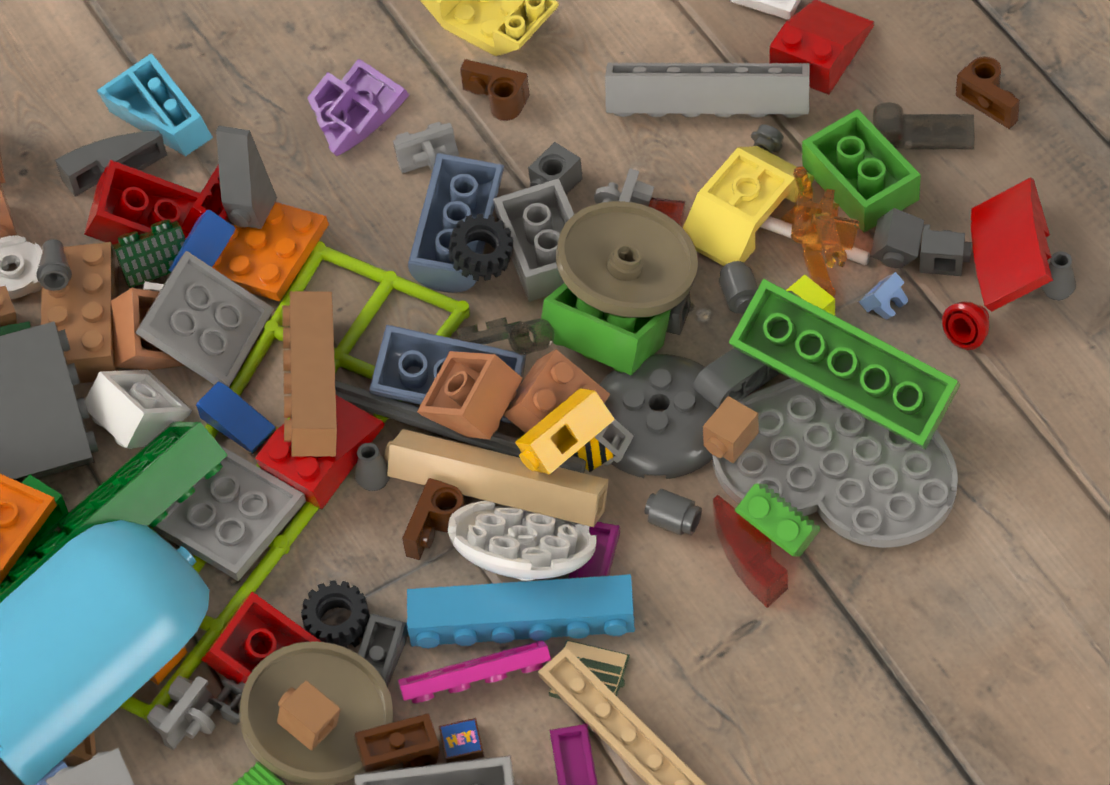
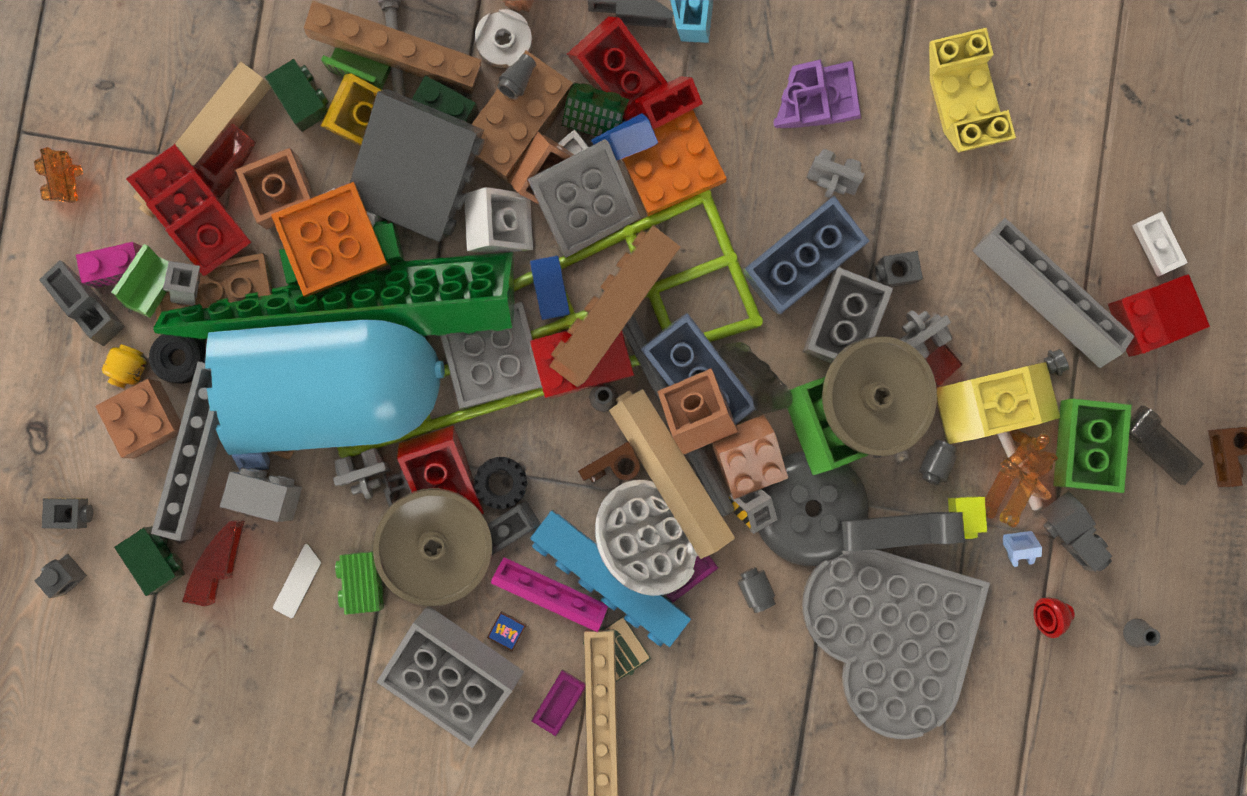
camera: 30 degrees right, 30 degrees up
(243, 178) = (687, 116): dark grey slope -> none
(307, 714) = (418, 556): medium nougat brick -> none
(404, 742) = (461, 612): reddish brown plate -> none
(480, 230) = (815, 305): black tyre -> none
(505, 87) = (924, 164): reddish brown plate -> none
(564, 431) = (729, 496): yellow brick -> none
(730, 429) = (836, 572): medium nougat brick -> none
(749, 553) = (776, 657): clear red slope -> none
(777, 519) = (810, 659): bright green brick -> none
(844, 364) = (943, 603): bright green brick -> none
(1010, 245) = (1133, 589): red slope -> none

